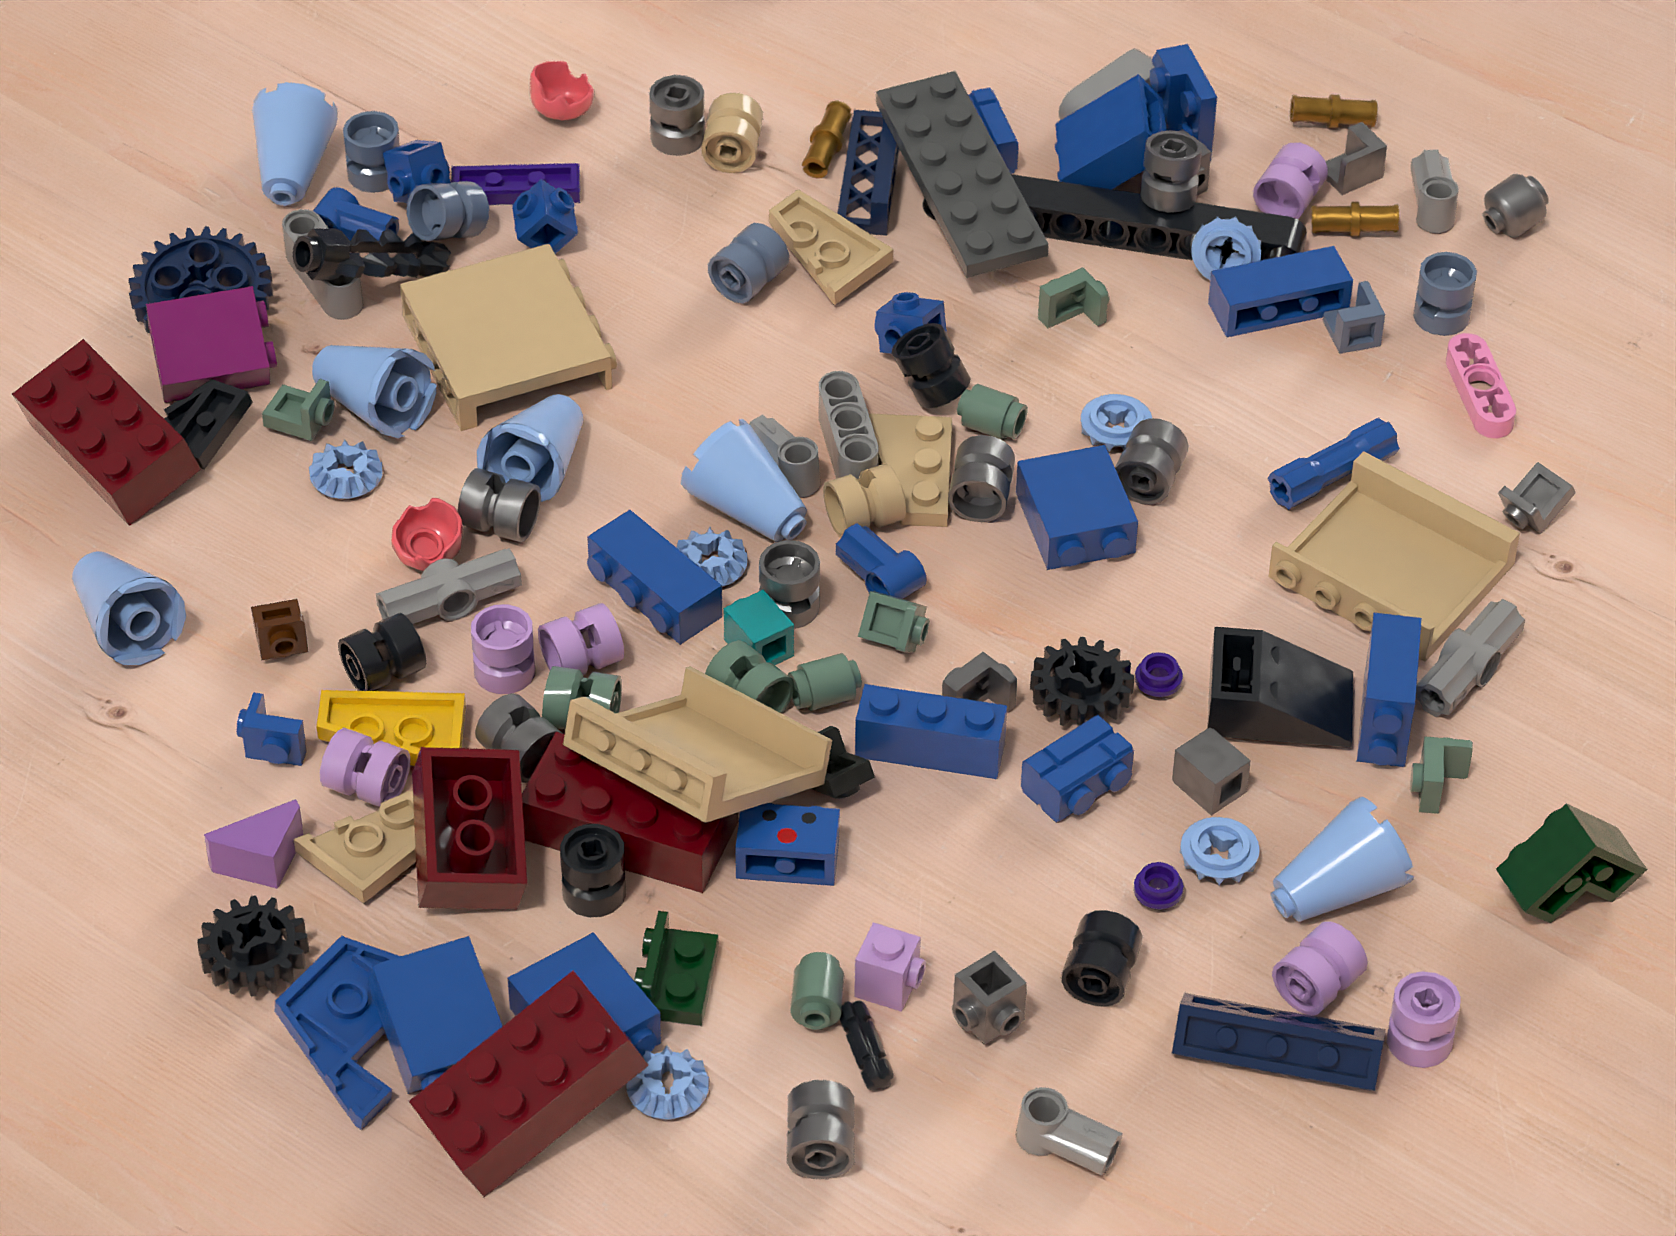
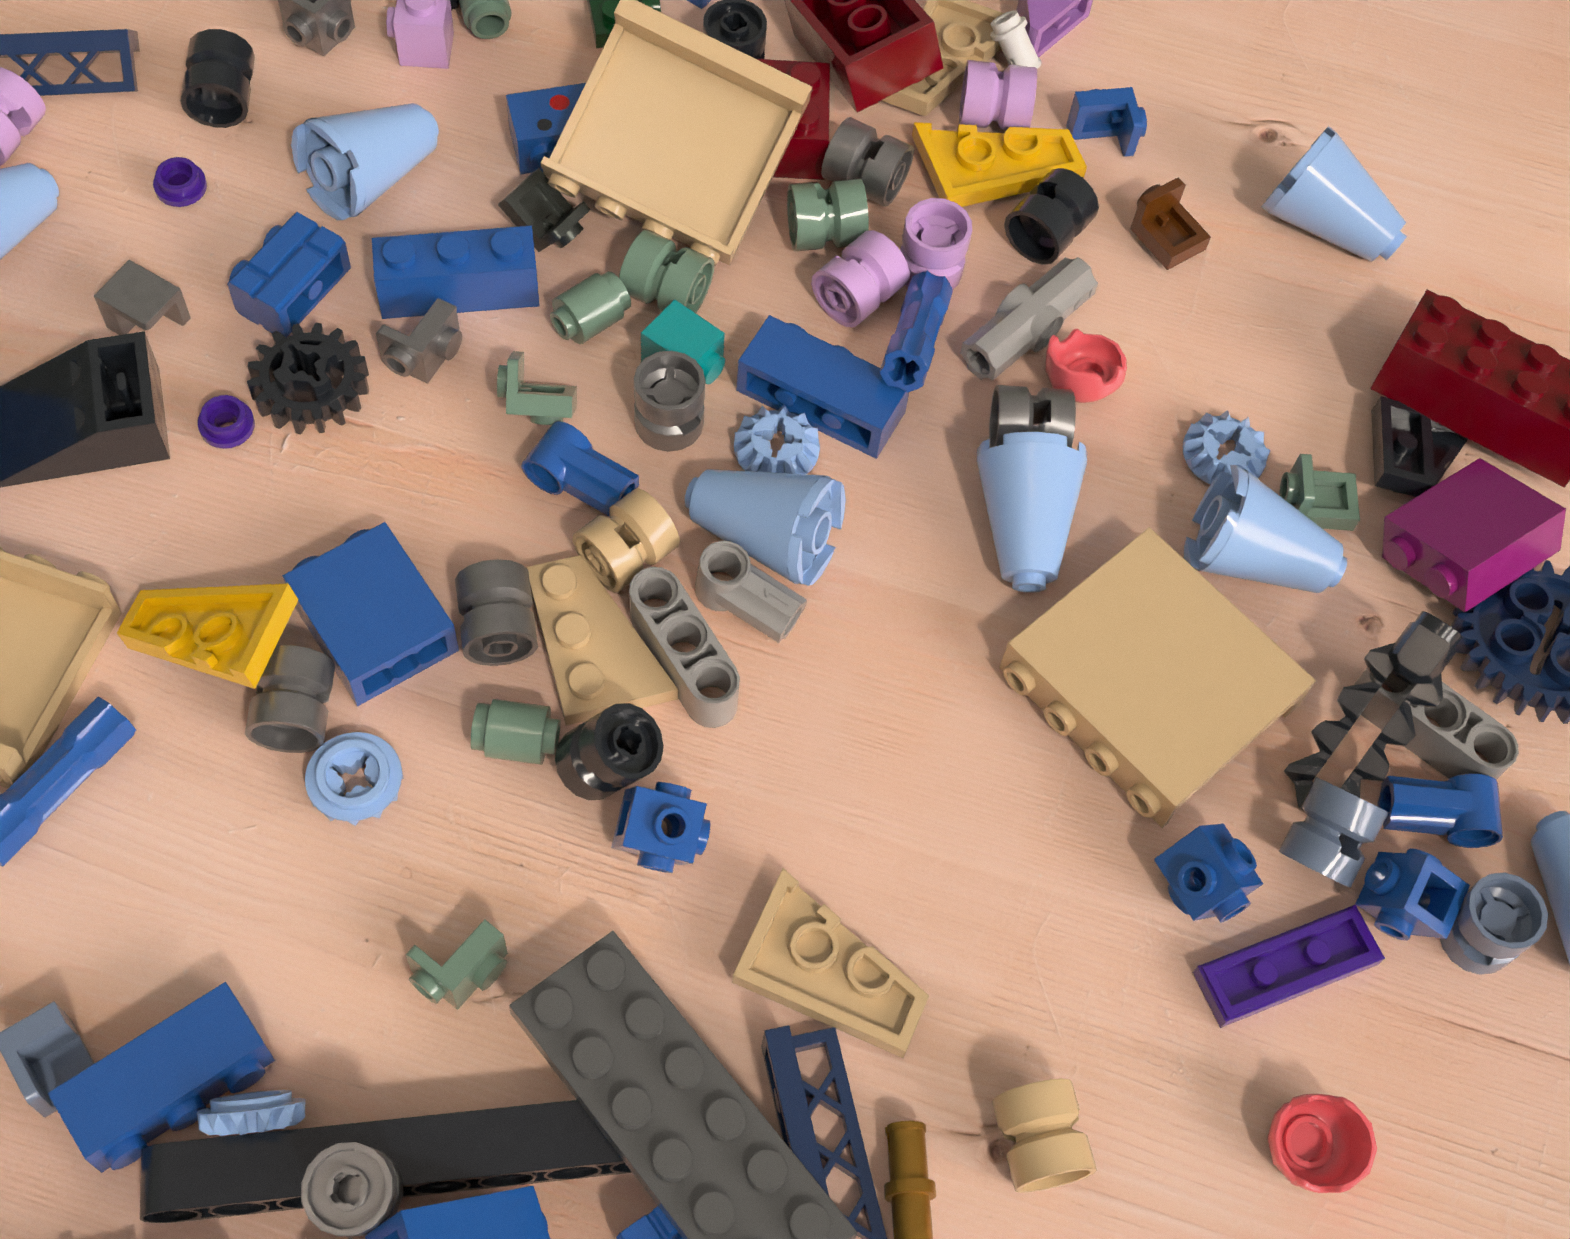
camera: 155 degrees right, 15 degrees up
(328, 817) = (1014, 40): none -> white pin
(578, 545) = (914, 340): none -> blue axle
(677, 115) = (1137, 1140): flat silver wheel -> none
(748, 263) = (912, 890): sand blue wheel -> none
(979, 844) = (361, 154): none -> light blue cone
(1197, 504) = (211, 628): none -> yellow wing
(1224, 835) = (125, 218): light blue gear -> none

